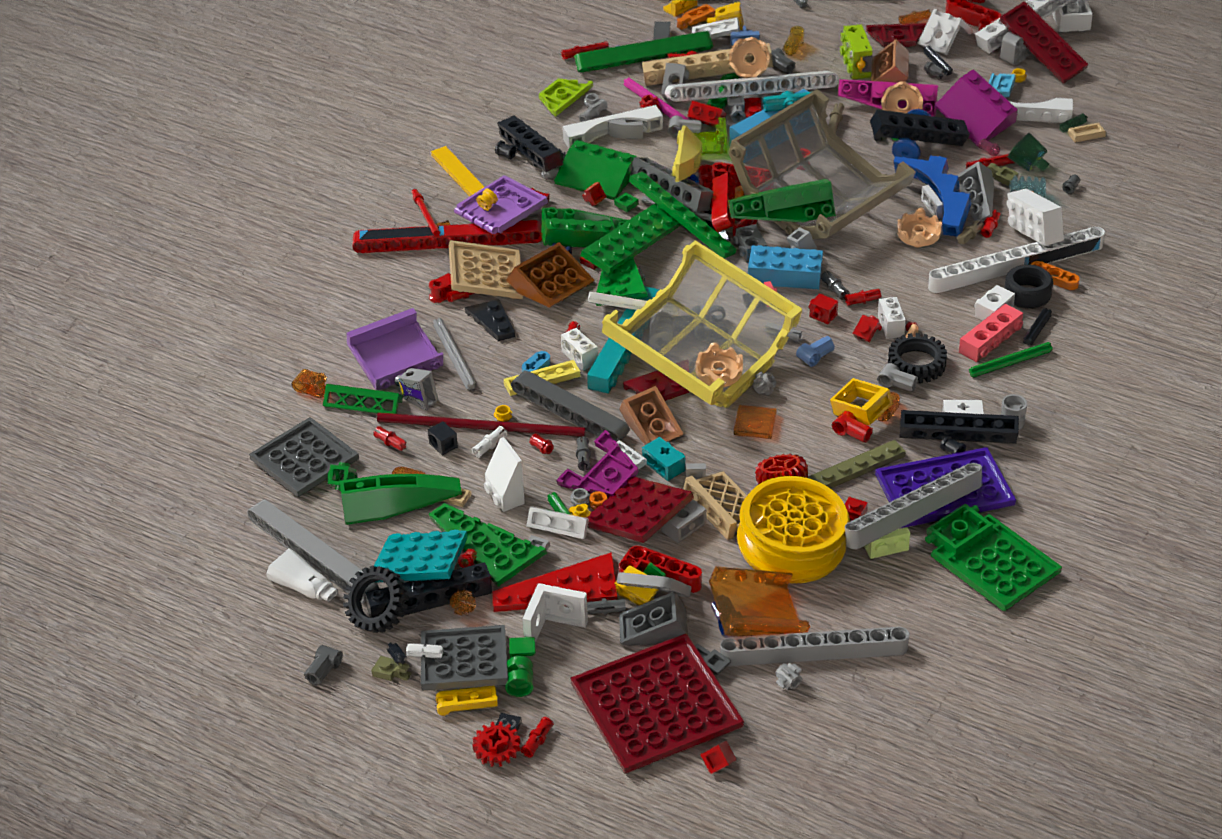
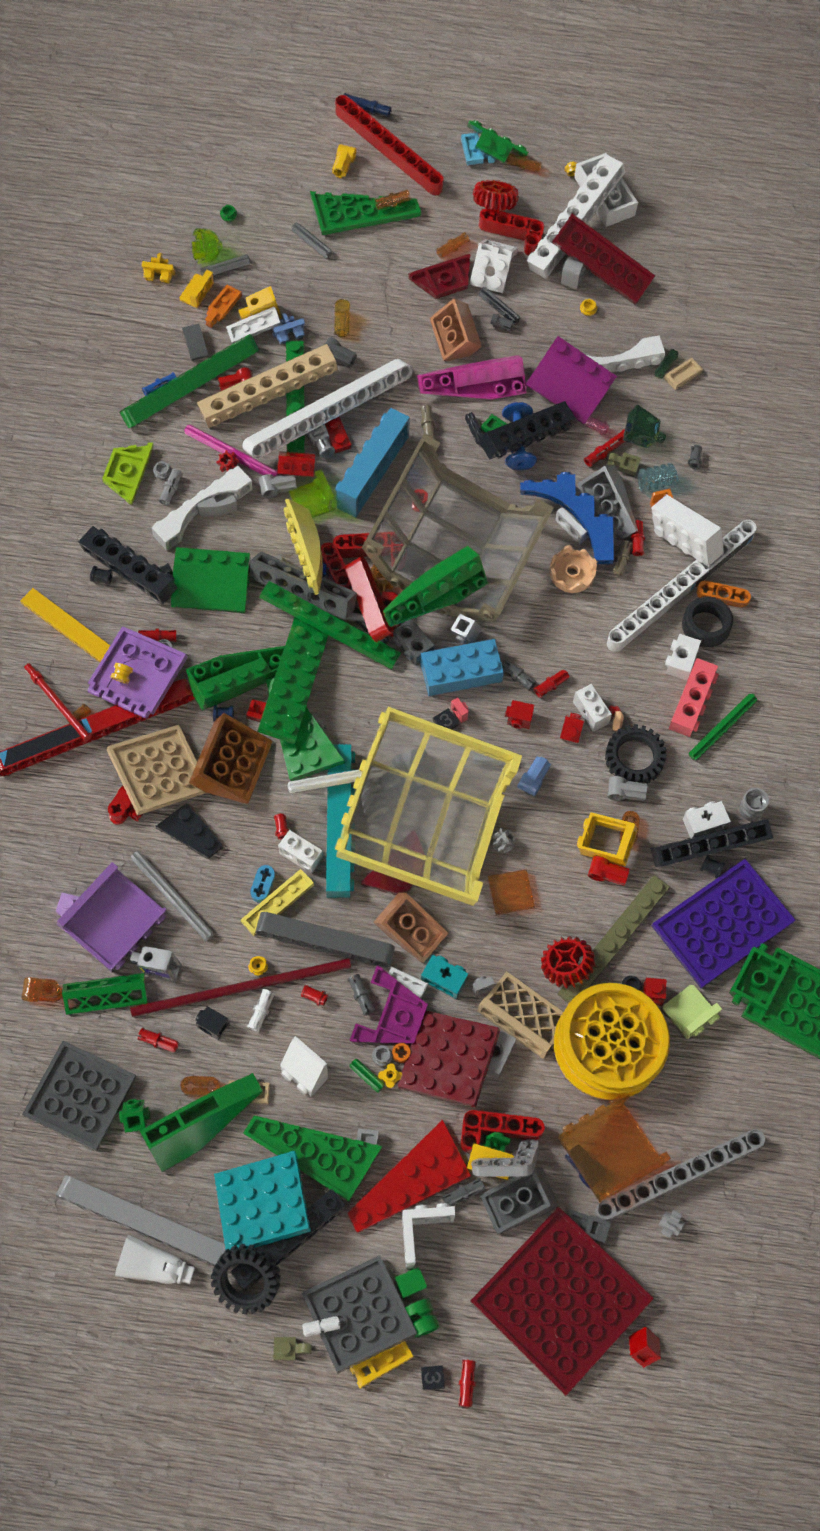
camera: 25 degrees left, 25 degrees up
(325, 660) = (223, 1365): dark grey piece -> none
(396, 653) = (291, 1332): black axle -> none
(462, 602) = (327, 1241): clear orange gear -> none
(467, 558) = (312, 1192): red pin -> none
(496, 744) = (447, 1408): red gear -> none
(557, 522) = (375, 1099): white plate -> none
(570, 53) = (117, 396): red pin -> none
(594, 194) = (224, 616): red tile -> none
(626, 202) = (261, 617): green plate -> none
(673, 72) = (241, 412): light grey brick -> none
(716, 358) = (457, 830): light nougat plate -> none
(745, 47) = (325, 384): light nougat plate -> none
(780, 102) = (386, 437): teal piece -> none
(856, 51) = (416, 322): lime piece -> none
(899, 92) = (505, 391): light nougat plate -> none
(913, 505) = (714, 982): light grey beam -> none
(1003, 83) = (576, 327): medium azure plate -> none
(1037, 326) = (732, 670): black axle -> none

